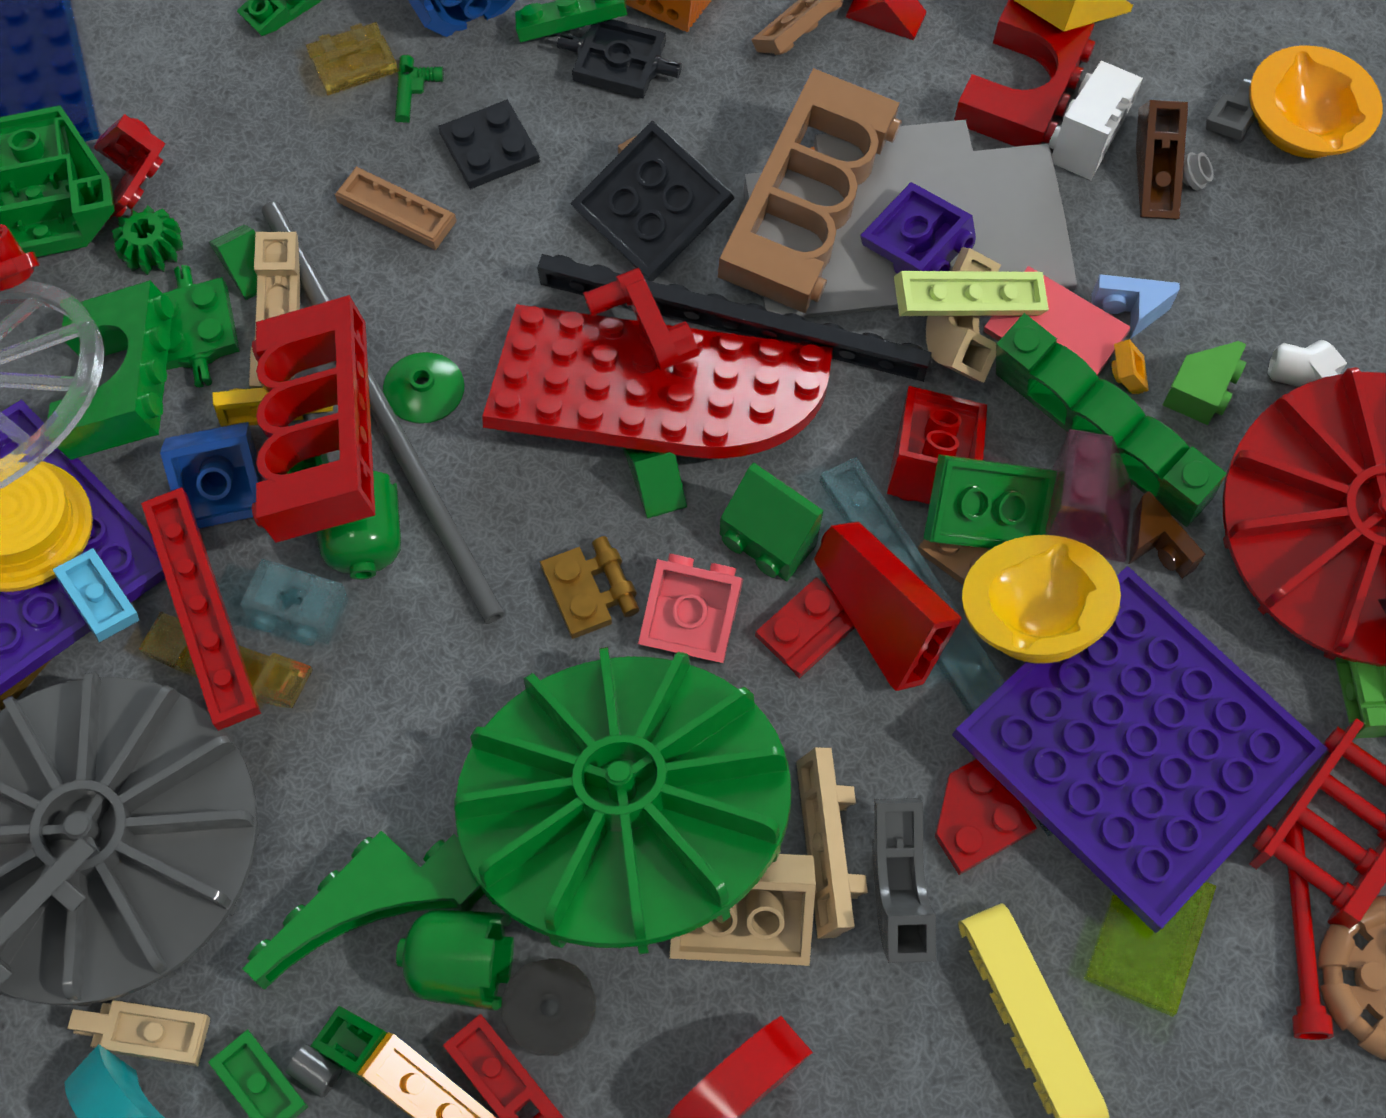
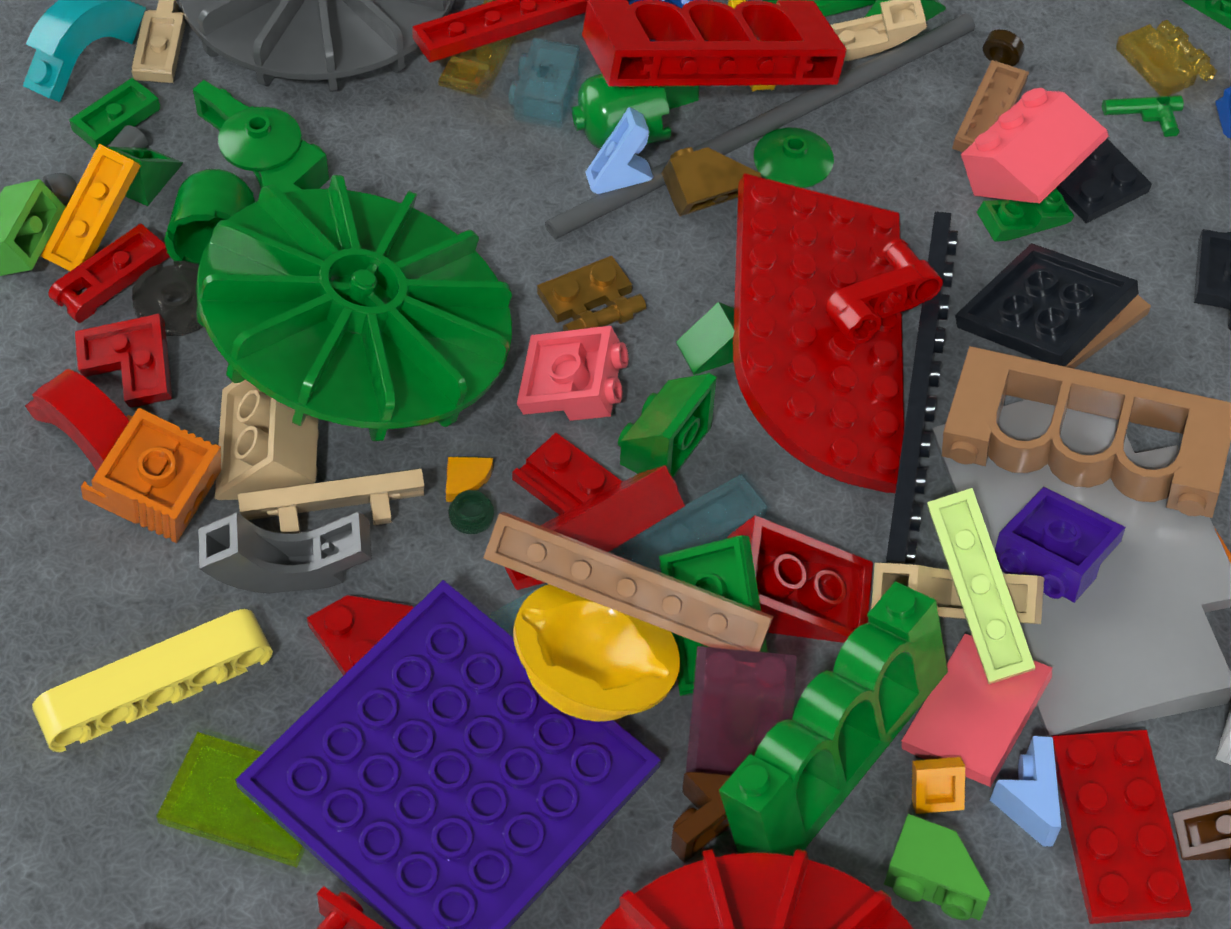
camera: 85 degrees right, 10 degrees down
(318, 182) = (1003, 47): none -> dark brown tile
(362, 920) = (259, 139): none -> green dish
(424, 534) = (617, 161): none -> light blue slope
(463, 463) = (702, 179): none -> pearl gold slope
(468, 175) = (1032, 147): none -> coral slope
(527, 204) = (1016, 219): none -> green slope
(620, 1046) = (136, 349): none -> red plate
(799, 718) = (466, 474): none -> light orange tile
(809, 1010) = (155, 475): none -> orange piece
(842, 715) = (471, 512): none -> clear green plate
(990, 562) = (626, 586): none -> medium nougat plate
(1156, 248) = (1119, 827): none -> red plate

